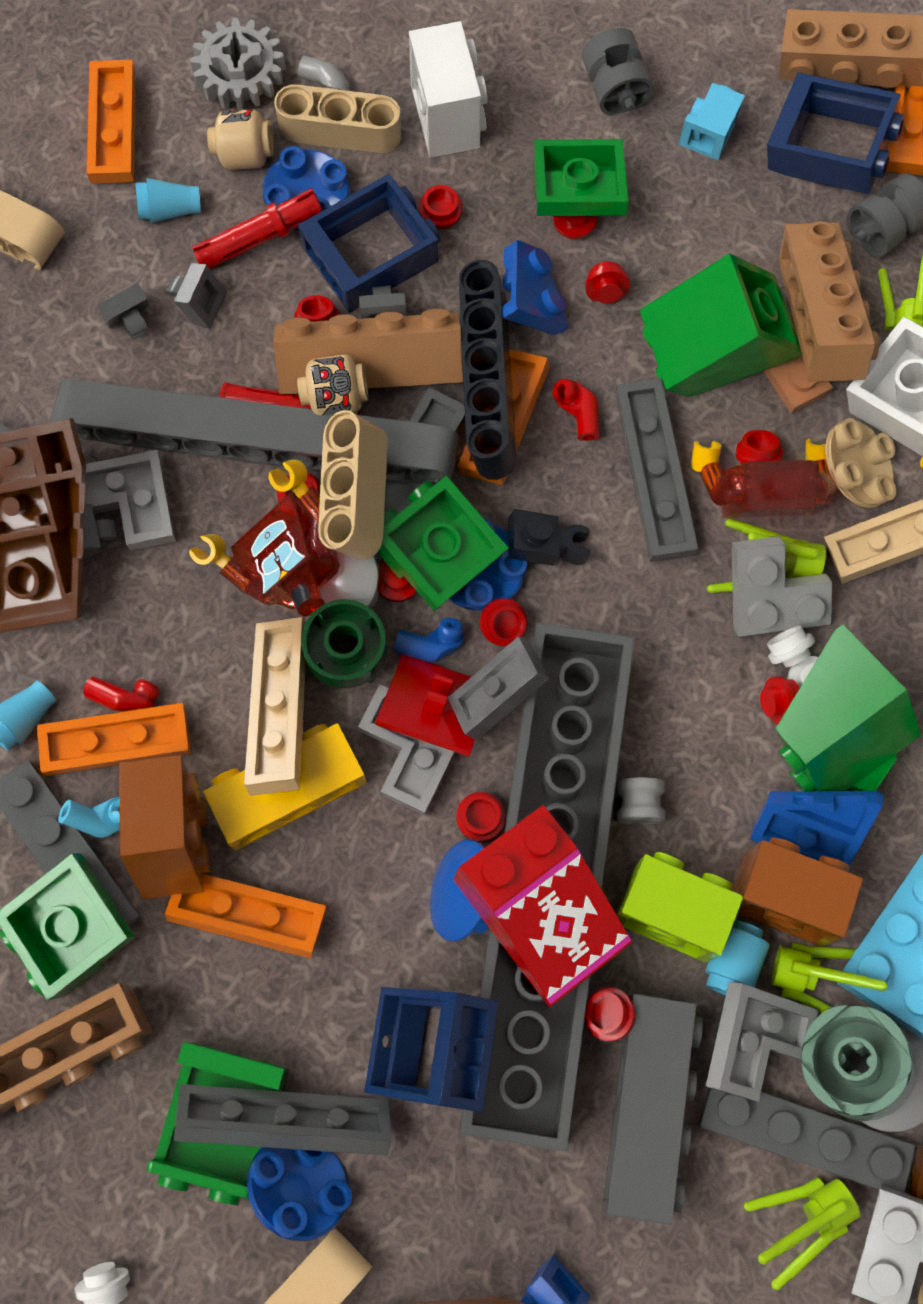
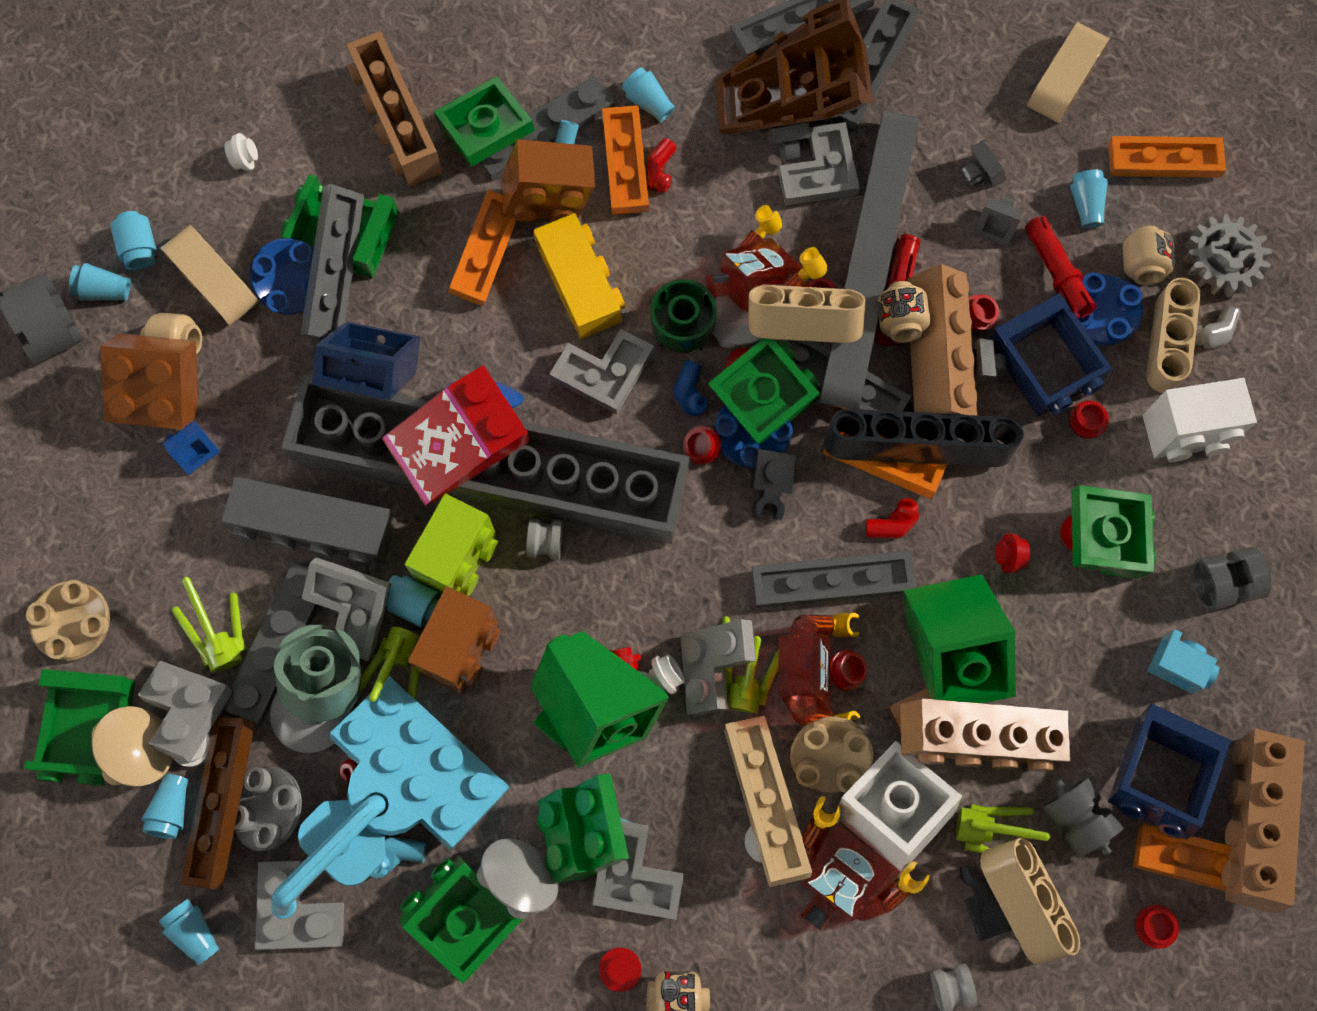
camera: 95 degrees right, 0 degrees up
(276, 708) = (630, 262): tan plate -> none
(420, 705) = (634, 385): red piece -> none
(480, 816) = (546, 414): red plate -> none
(498, 688) = (636, 422): flat silver plate -> none
(533, 290) = (1002, 484): blue wing -> none
(610, 1014) = (377, 490): red plate -> none
(819, 821) = (511, 673): blue wing -> none

